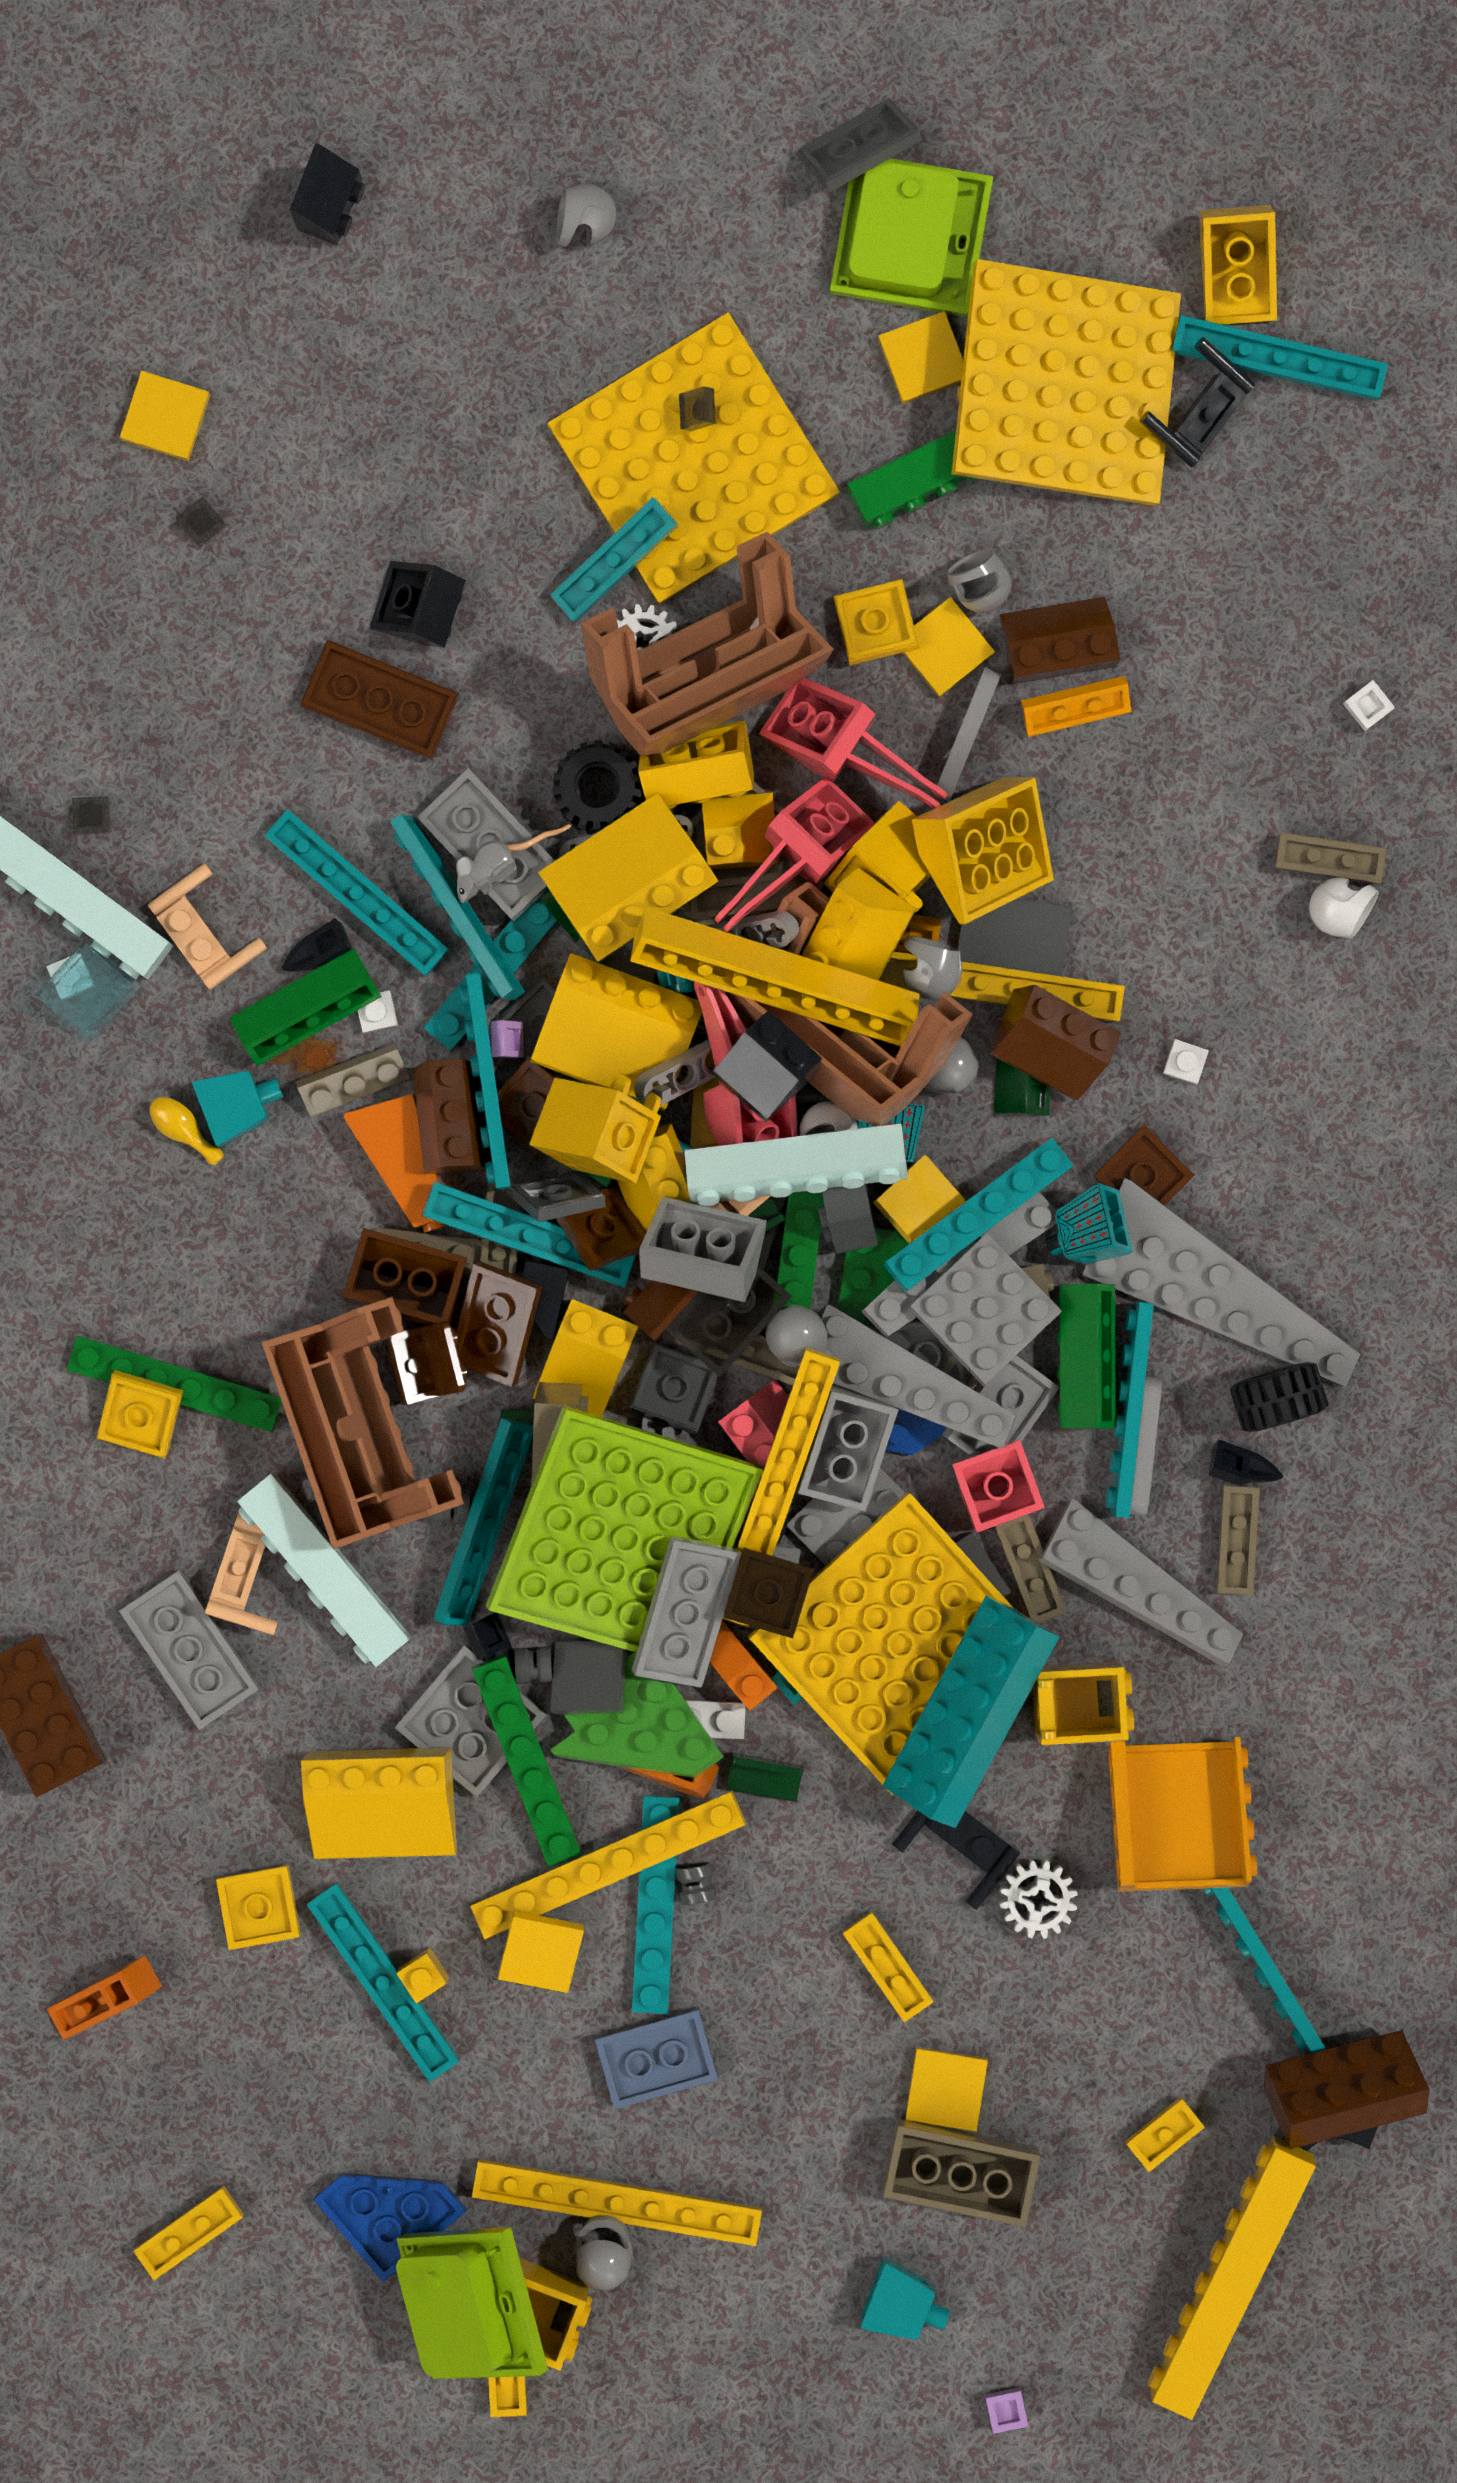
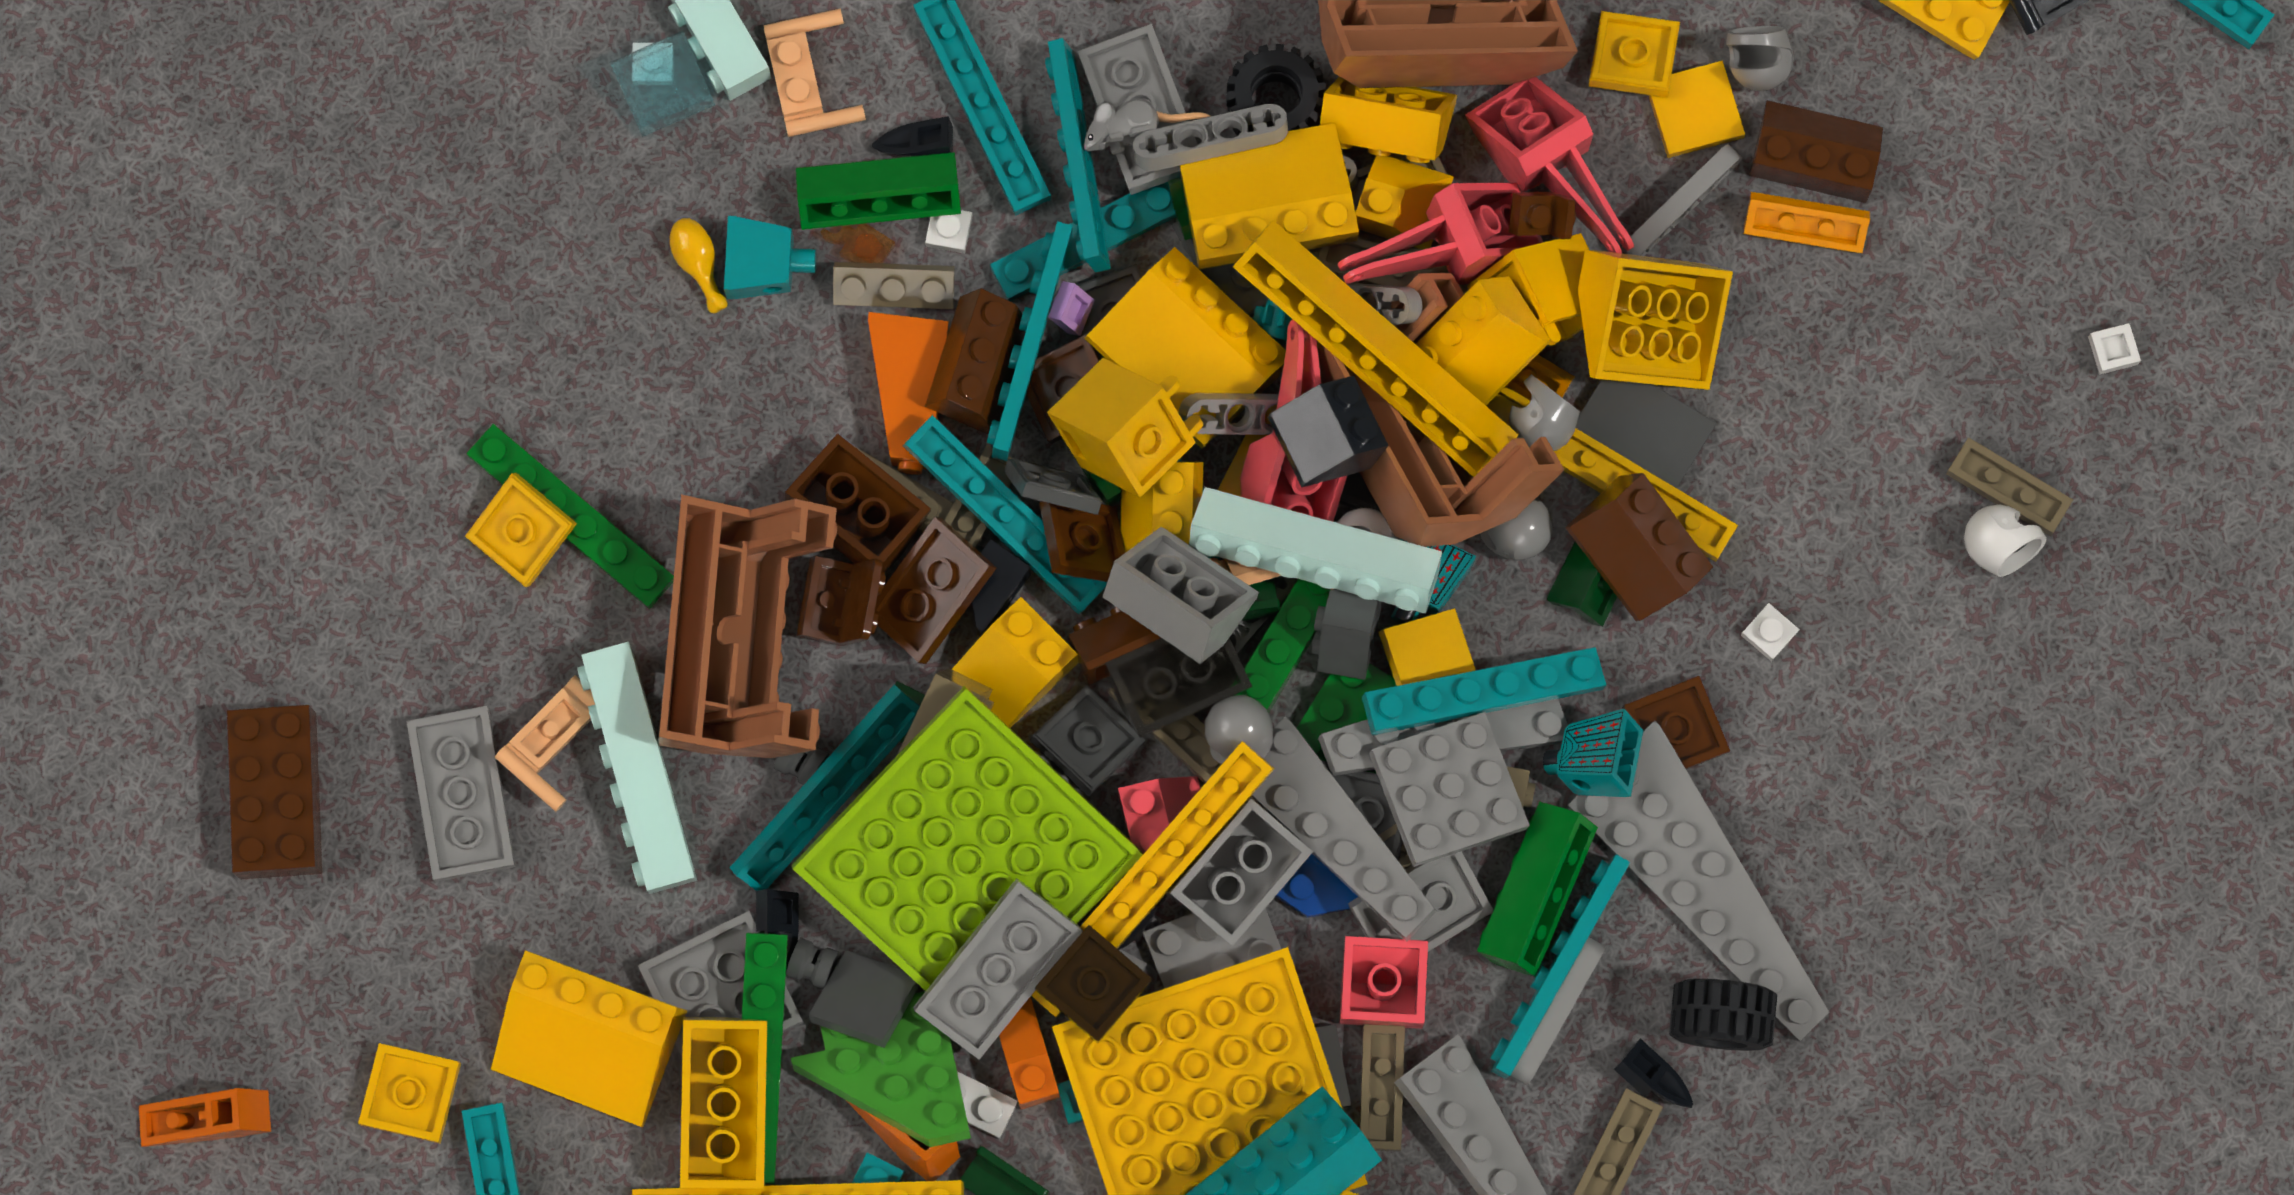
camera: 25 degrees right, 10 degrees down
(513, 1812) = (723, 1103): none -> yellow slope
(565, 854) = (1209, 131): none -> light grey beam
(862, 800) = (1542, 214): none -> reddish brown bracket

